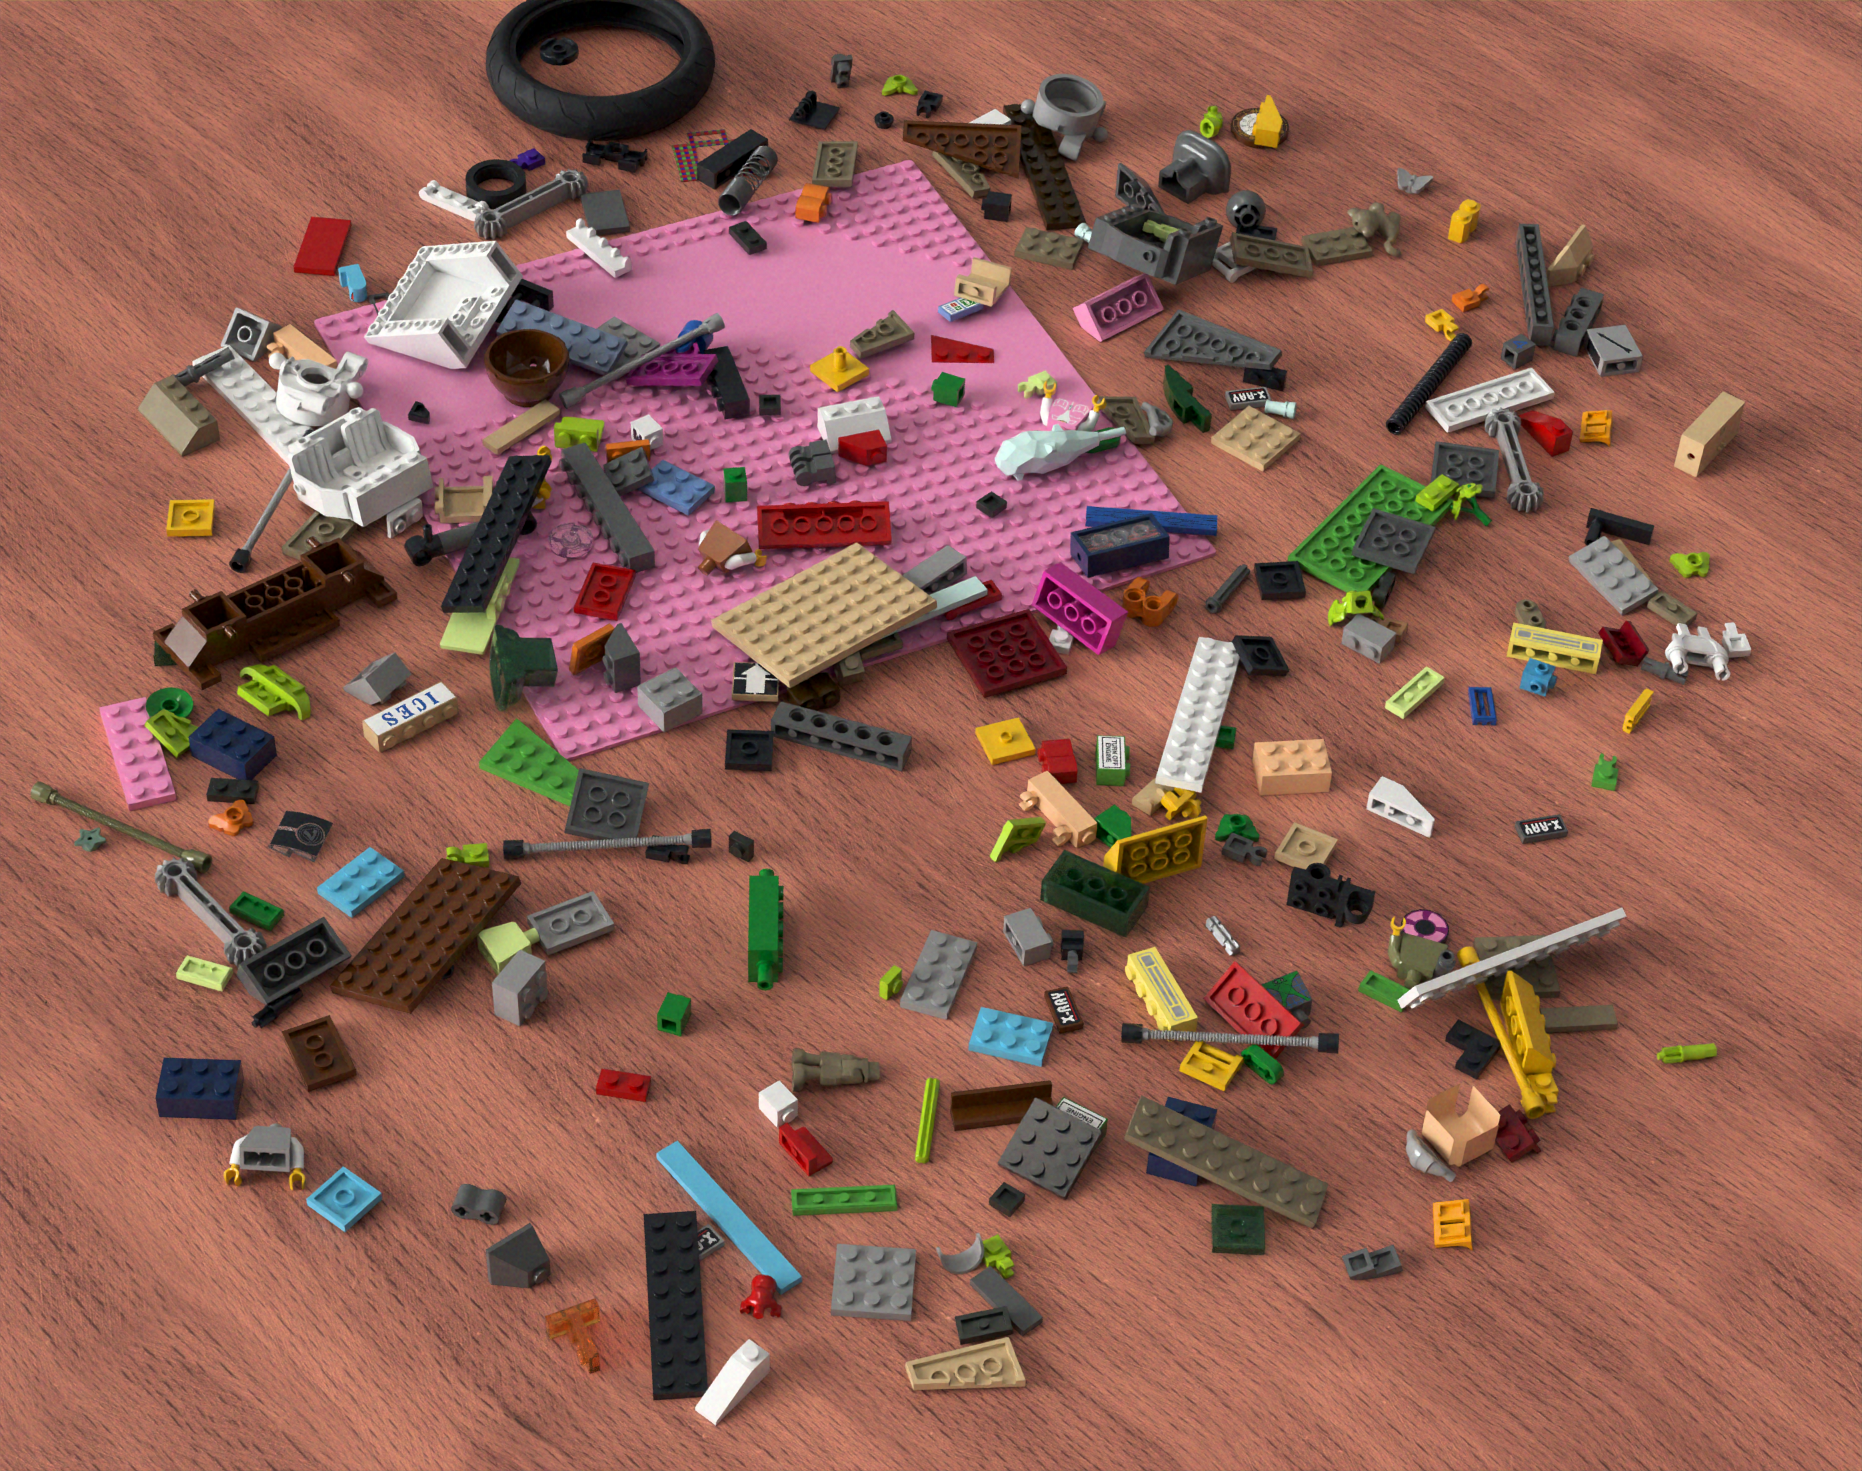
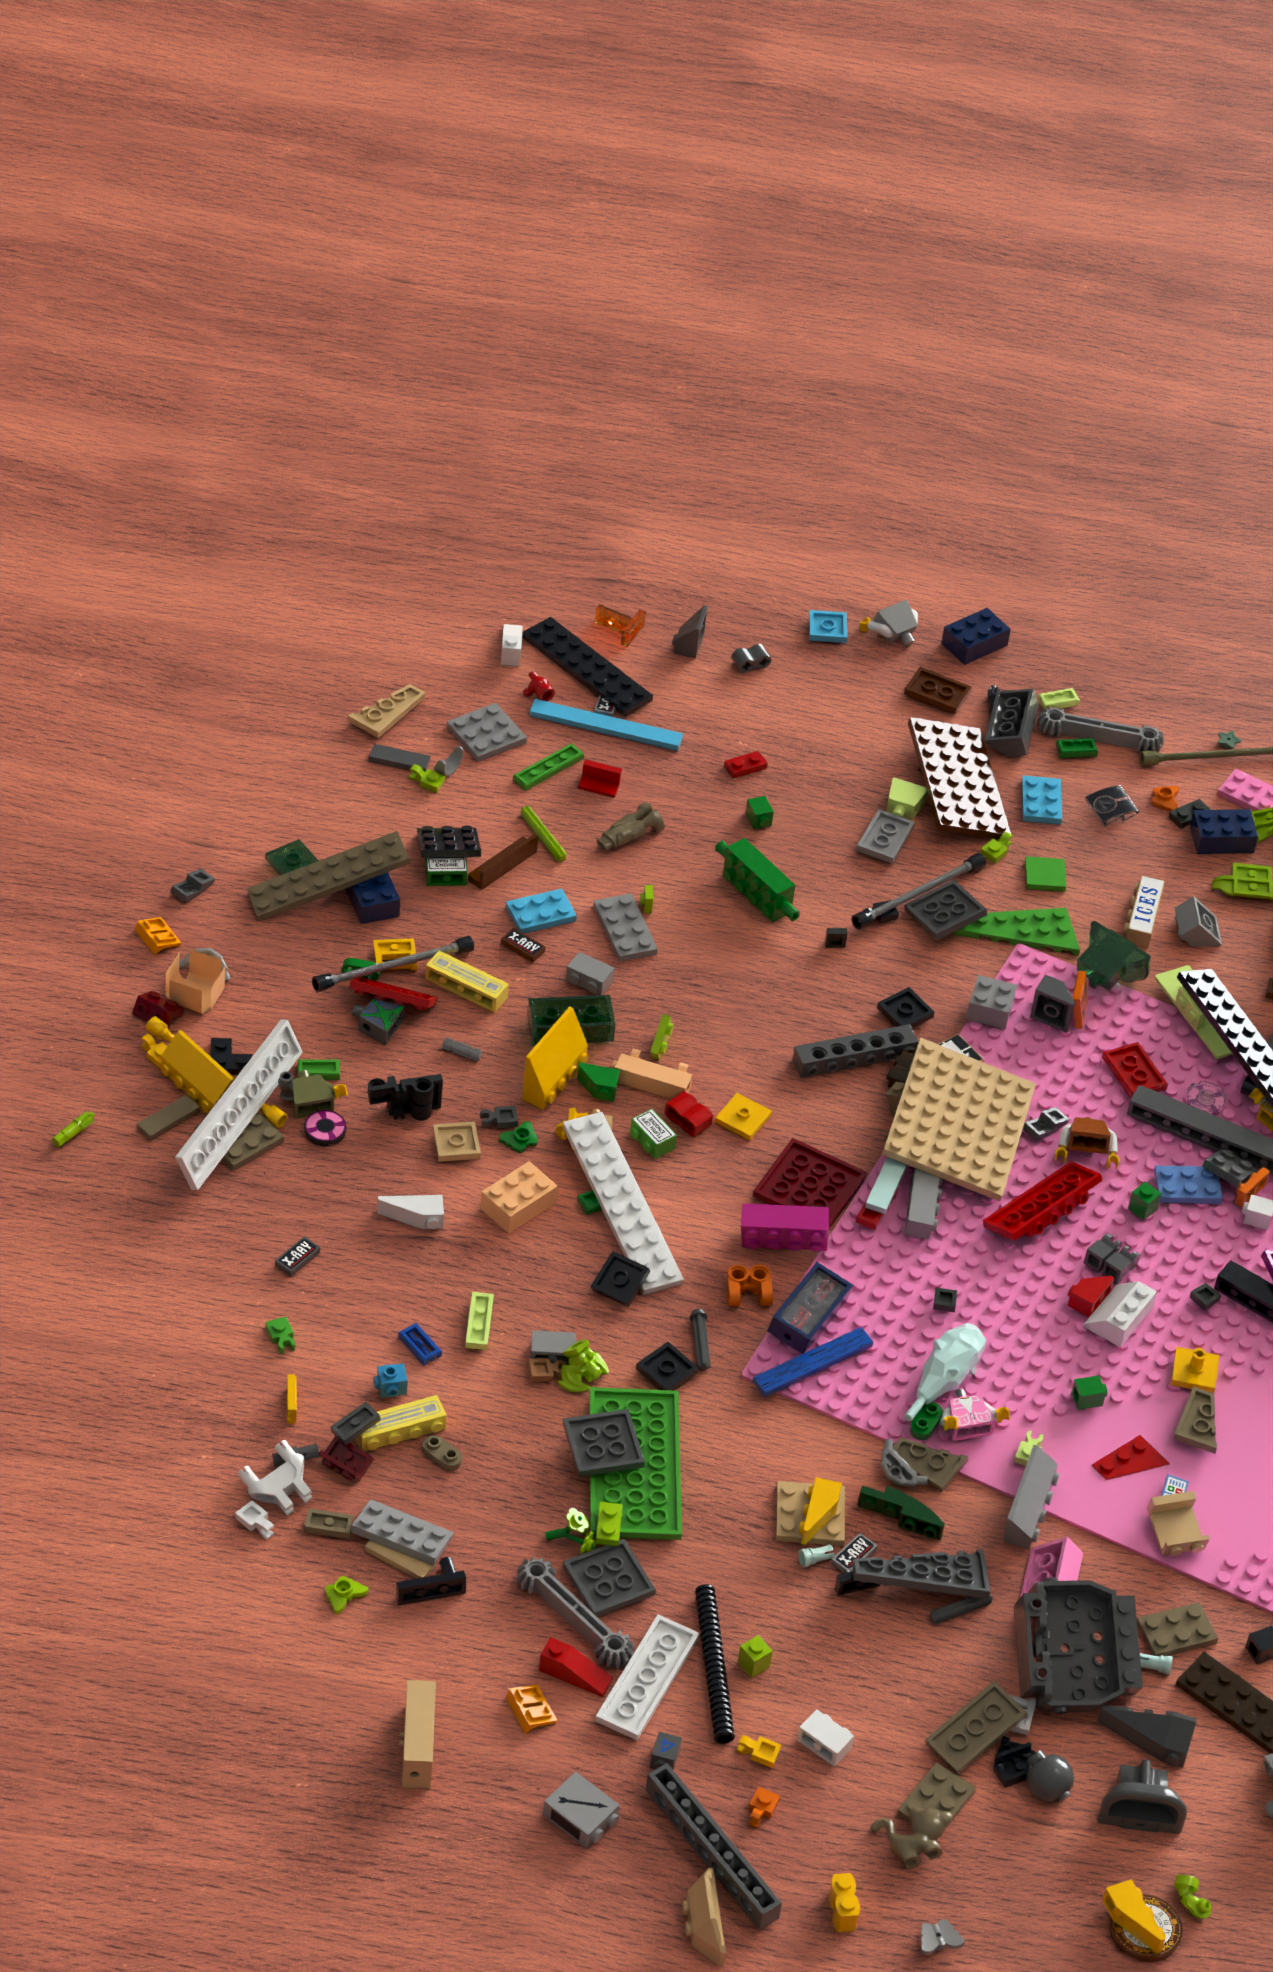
camera: 140 degrees right, 0 degrees up
(454, 807) = (1045, 873): none -> bright green tile
(520, 988) = (863, 769): light grey brick -> none
(734, 589) = (1048, 1123): none -> dark grey slope
(778, 1104) = (639, 791): white brick -> none
(983, 1325) = (399, 733): pearl dark grey plate -> none
(1007, 1199) = (449, 809): pearl dark grey plate -> none
(1072, 948) = (553, 984): black piece -> none
(1081, 349) = (1031, 1498): none -> light grey slope
(1159, 230) = (1088, 1687): yellowish green plate -> none
(1256, 416) = (822, 1507): none -> yellow slope
(1386, 586) = (575, 1400): pearl dark grey plate -> none
(1387, 305) = (825, 1738): none -> white brick
(1395, 369) = (755, 1656): none -> lime brick
(1578, 318) = (642, 1862): dark grey brick -> none
(1605, 643) = (355, 1423): none -> dark grey plate

